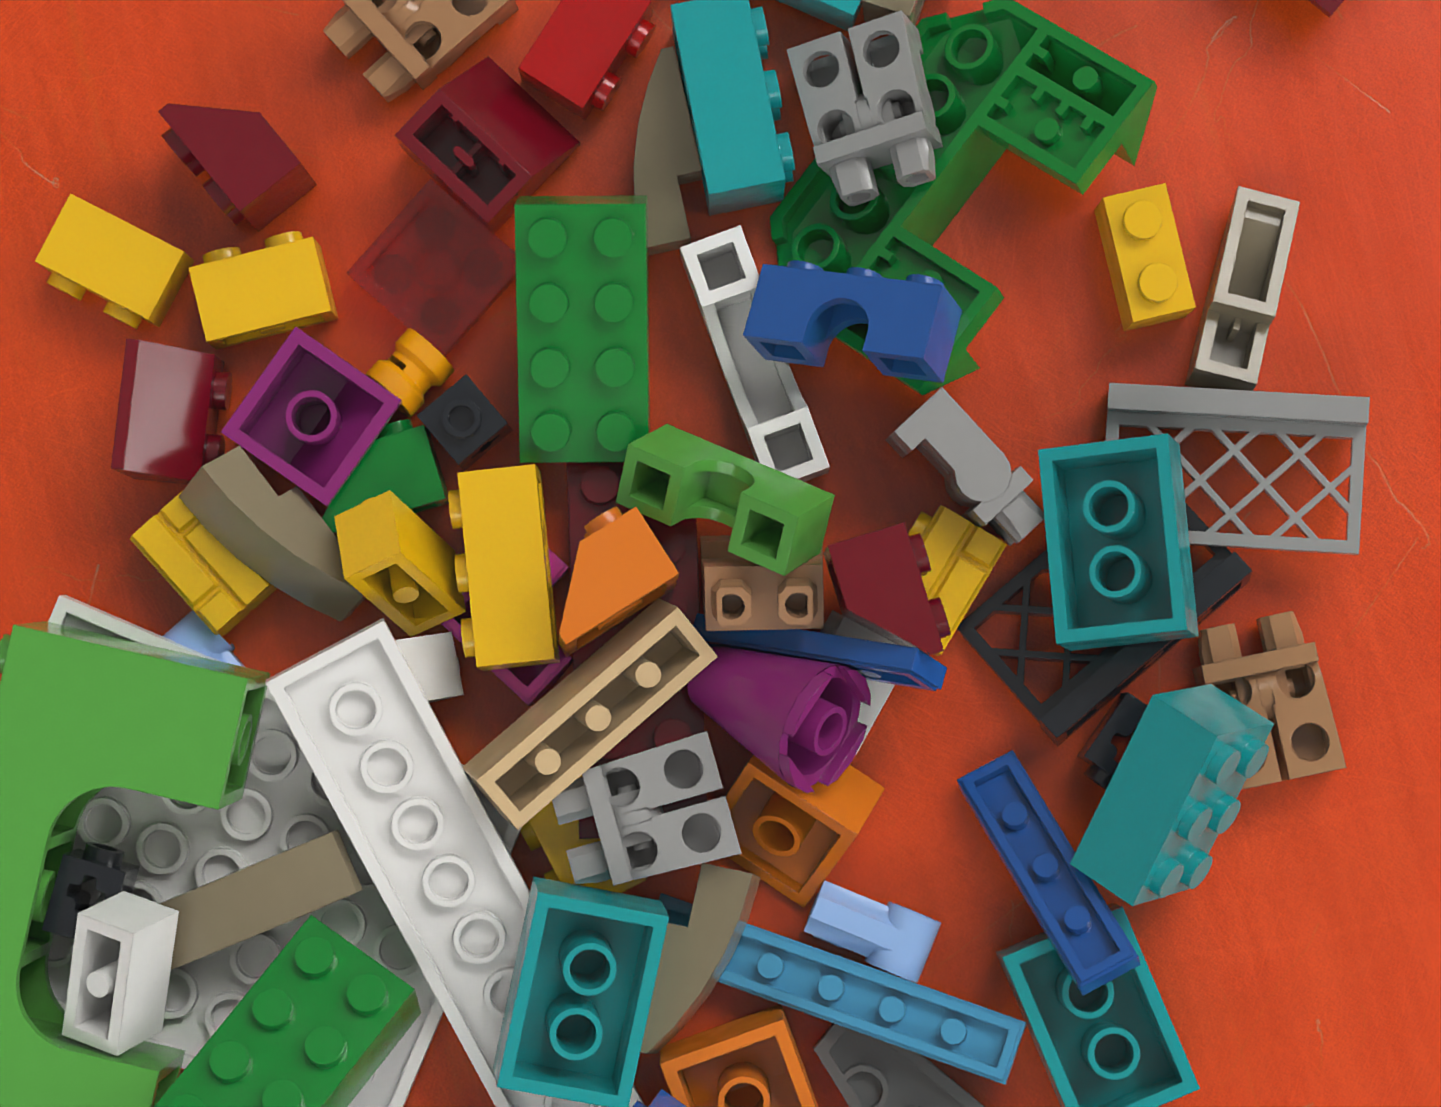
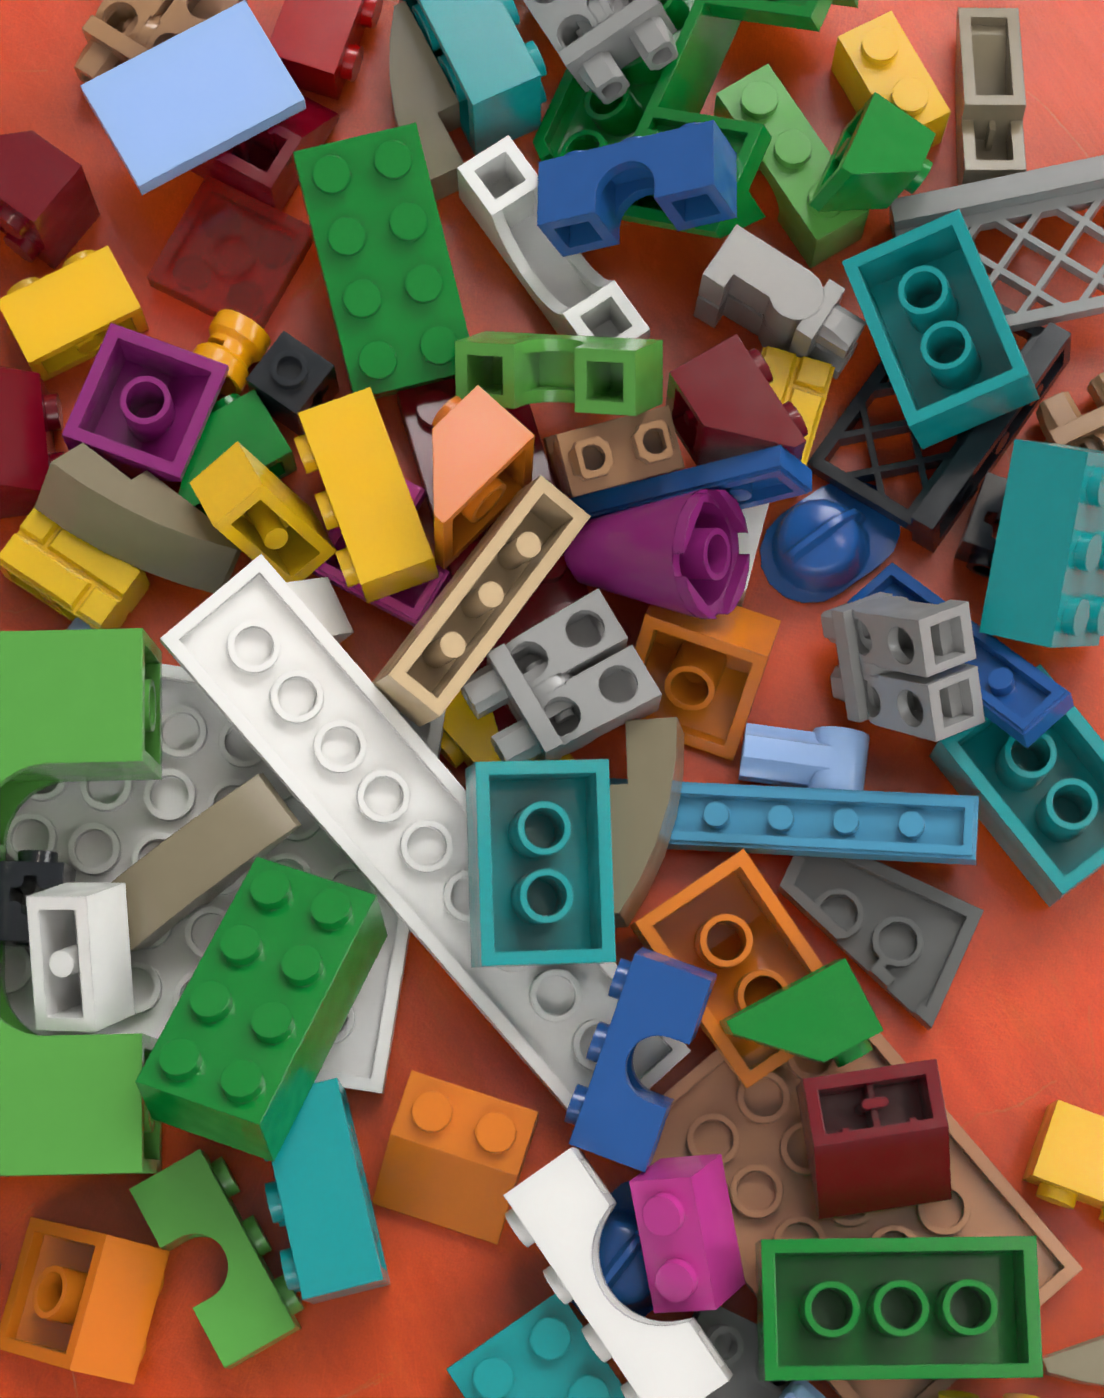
camera: 15 degrees left, 10 degrees down
(431, 109) = (193, 97): none -> light blue tile
(959, 721) = (825, 545): none -> blue piece
(989, 877) = (906, 664): none -> light grey hips
(1026, 323) = (791, 165): none -> bright green arch
(1100, 345) = (874, 160): none -> green slope

